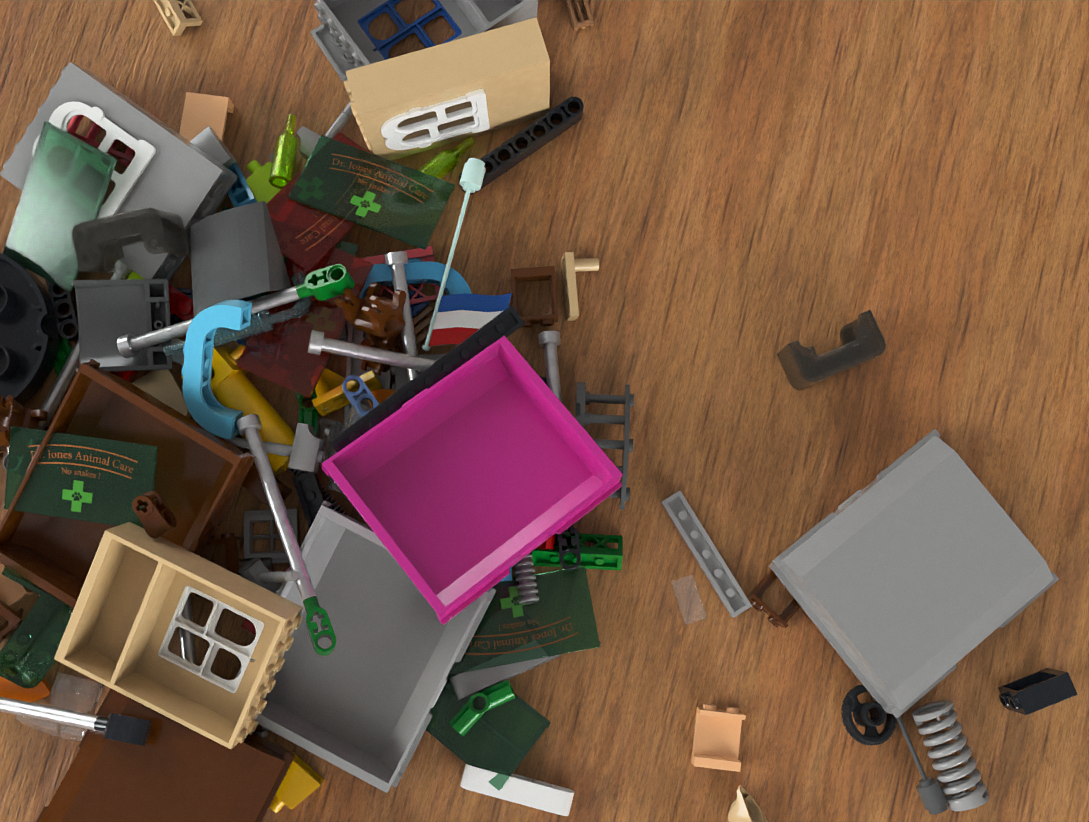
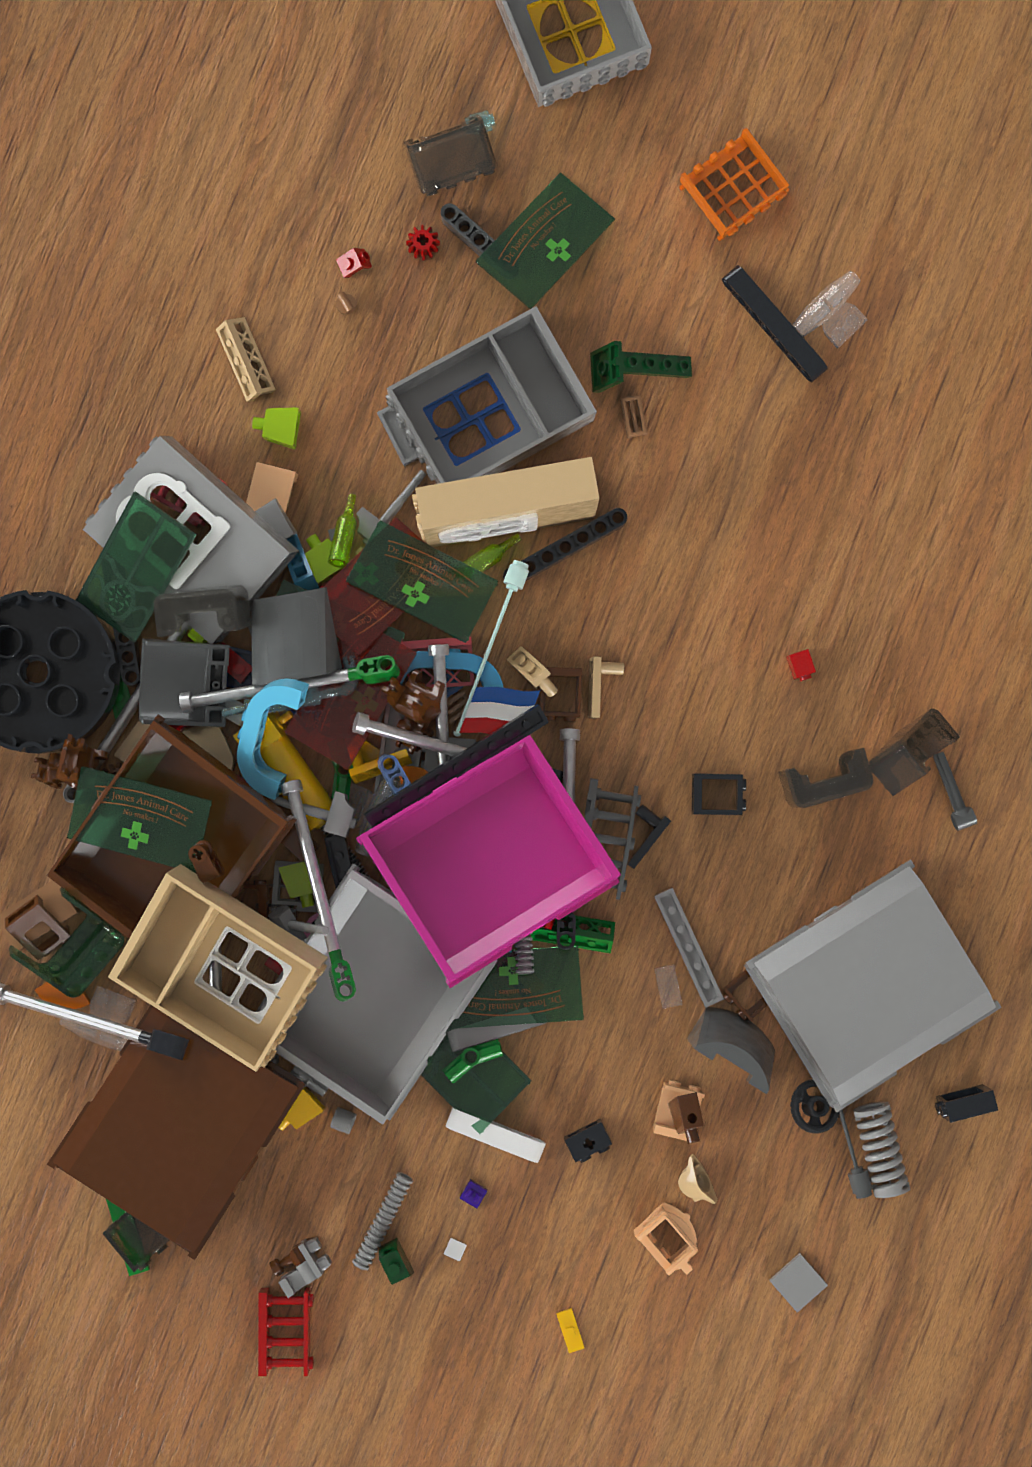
camera: 10 degrees right, 5 degrees up
(209, 55) = (279, 426): none -> lime torso
(266, 531) = (297, 882): none -> lime torso
(302, 753) = (310, 1082): none -> light grey axle
(344, 793) = (343, 1120): none -> light grey piece
(502, 273) = (532, 670): none -> tan piece
(625, 772) = (593, 1131): none -> black brick
(656, 424) = (659, 825): none -> black piece
(694, 388) = (697, 794): none -> black window
(729, 742) = (685, 1109): none -> reddish brown torso
(761, 644) = (737, 1041): none -> dark grey windscreen
(786, 238) = (801, 665): none -> red brick
(920, 309) = (905, 754): none -> clear smoke windscreen
(980, 378) = (962, 815): none -> dark grey axle

